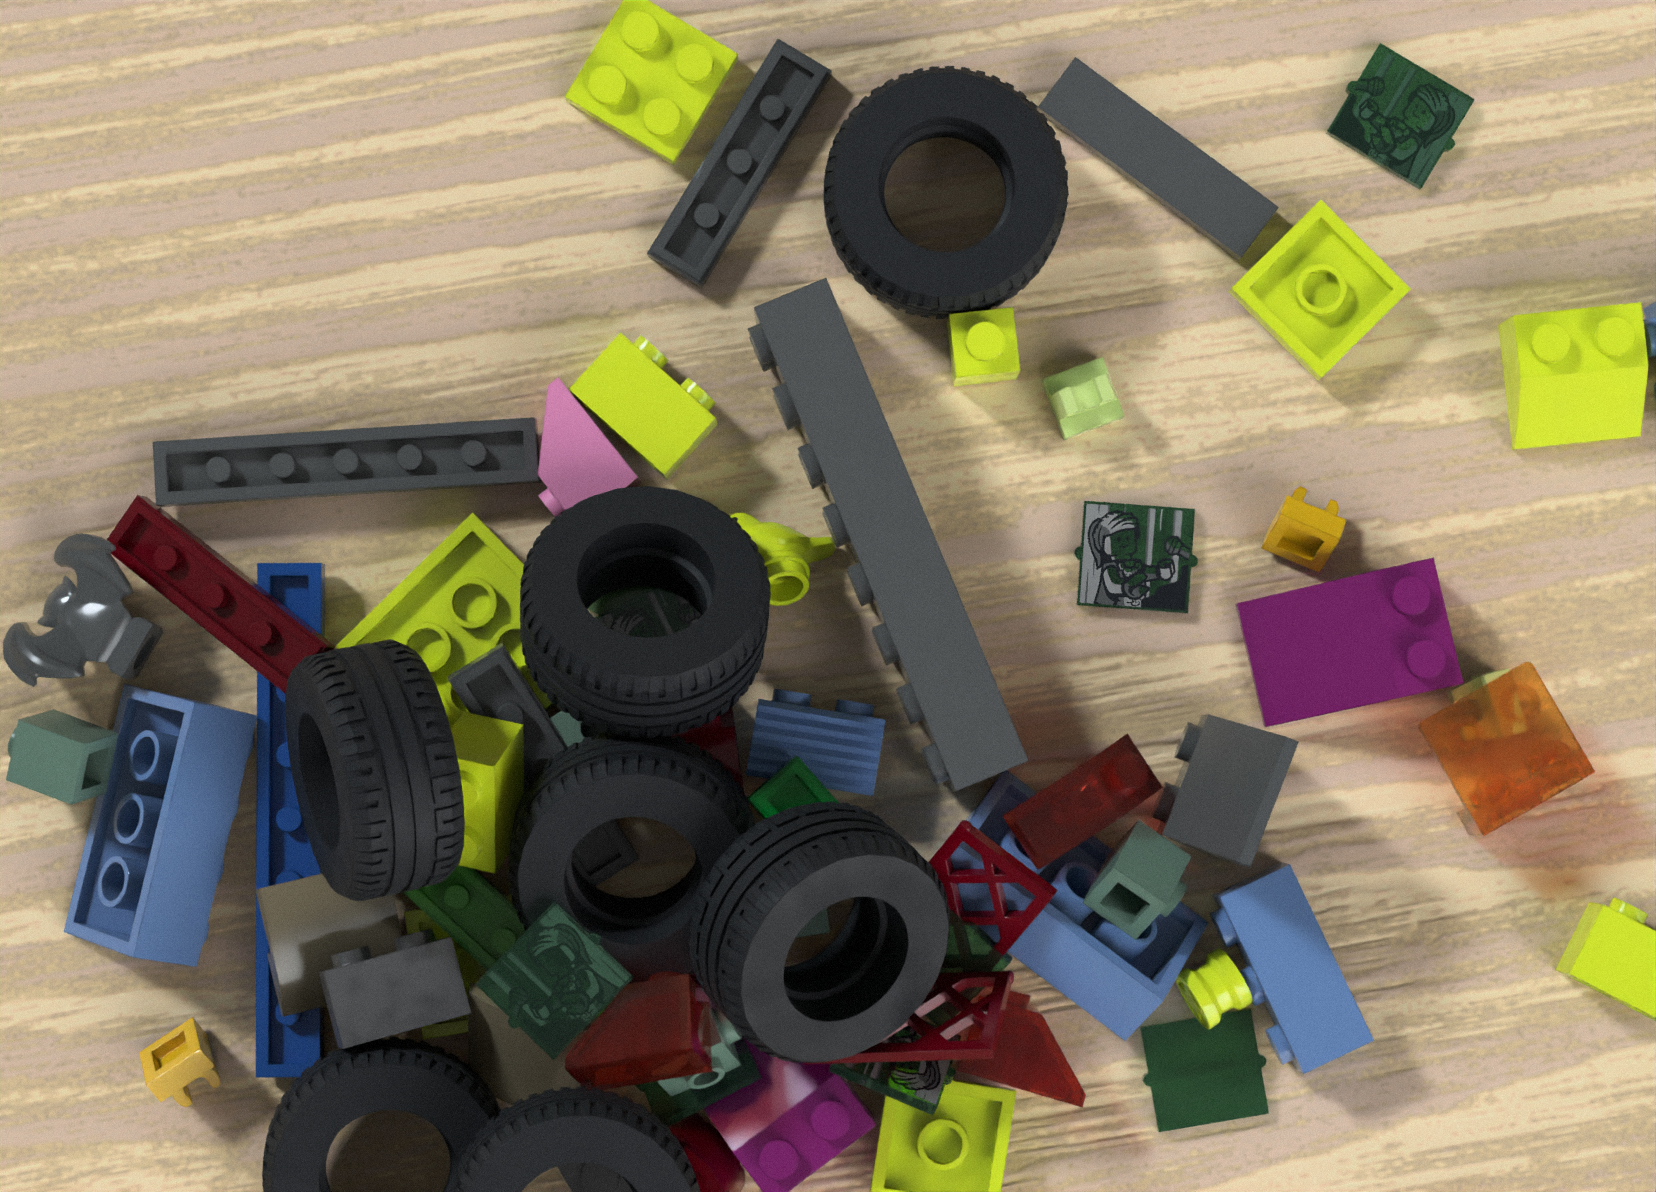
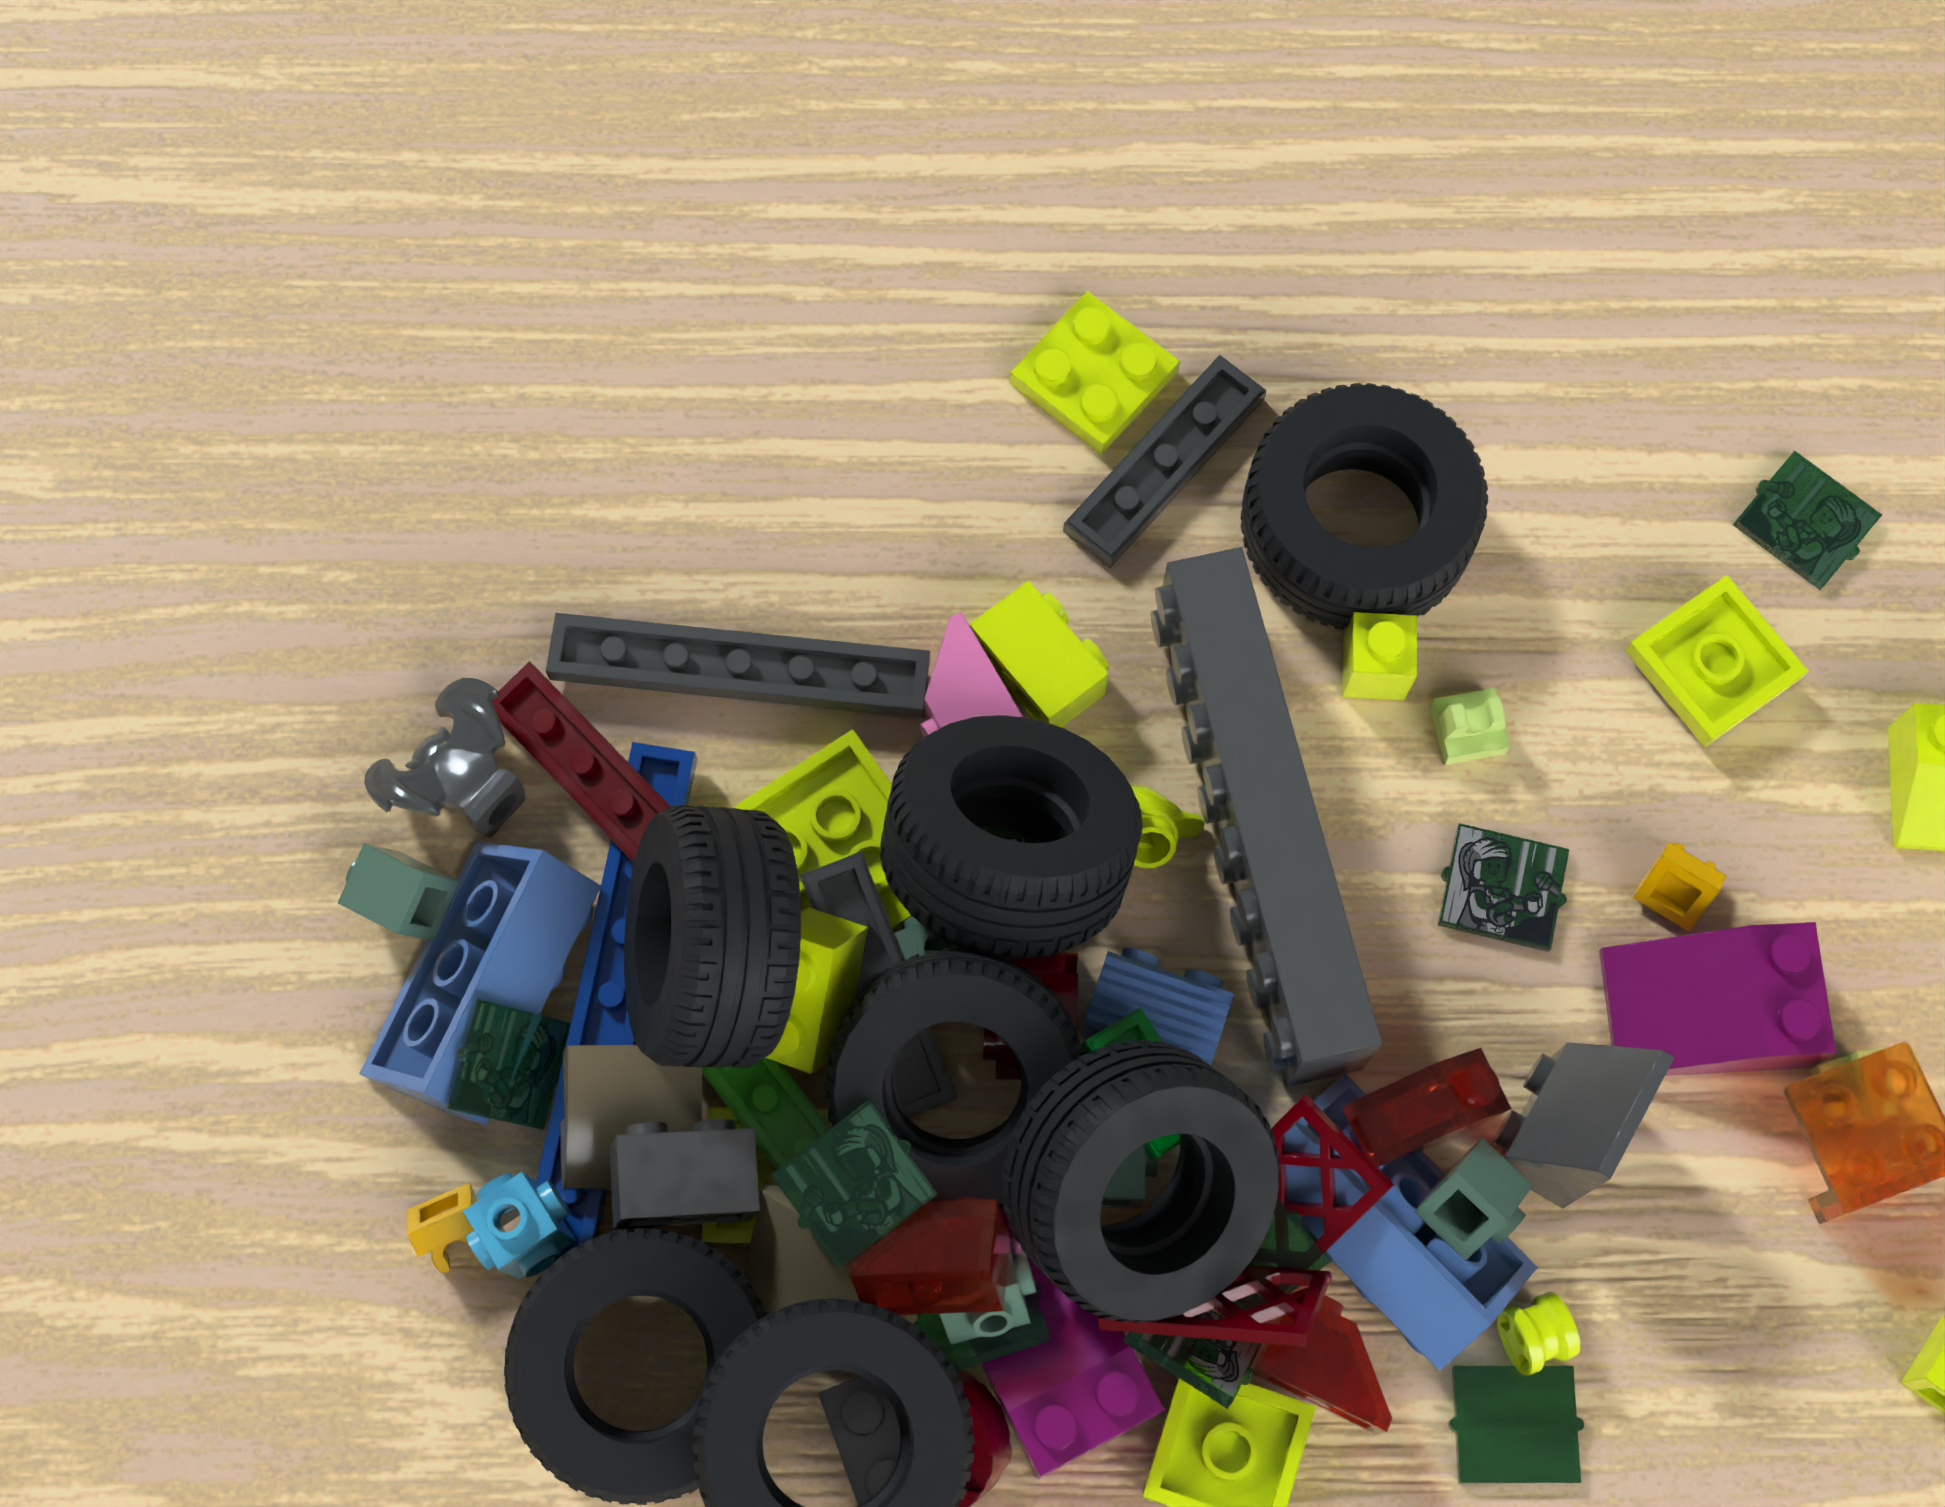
camera: 10 degrees right, 15 degrees down
(207, 908) = (509, 1065): none -> clear green piece
(270, 1057) = (536, 1238): none -> medium azure brick
(1157, 158) = (1573, 522): dark grey tile -> none
(1290, 969) = (1623, 1326): medium blue brick -> none

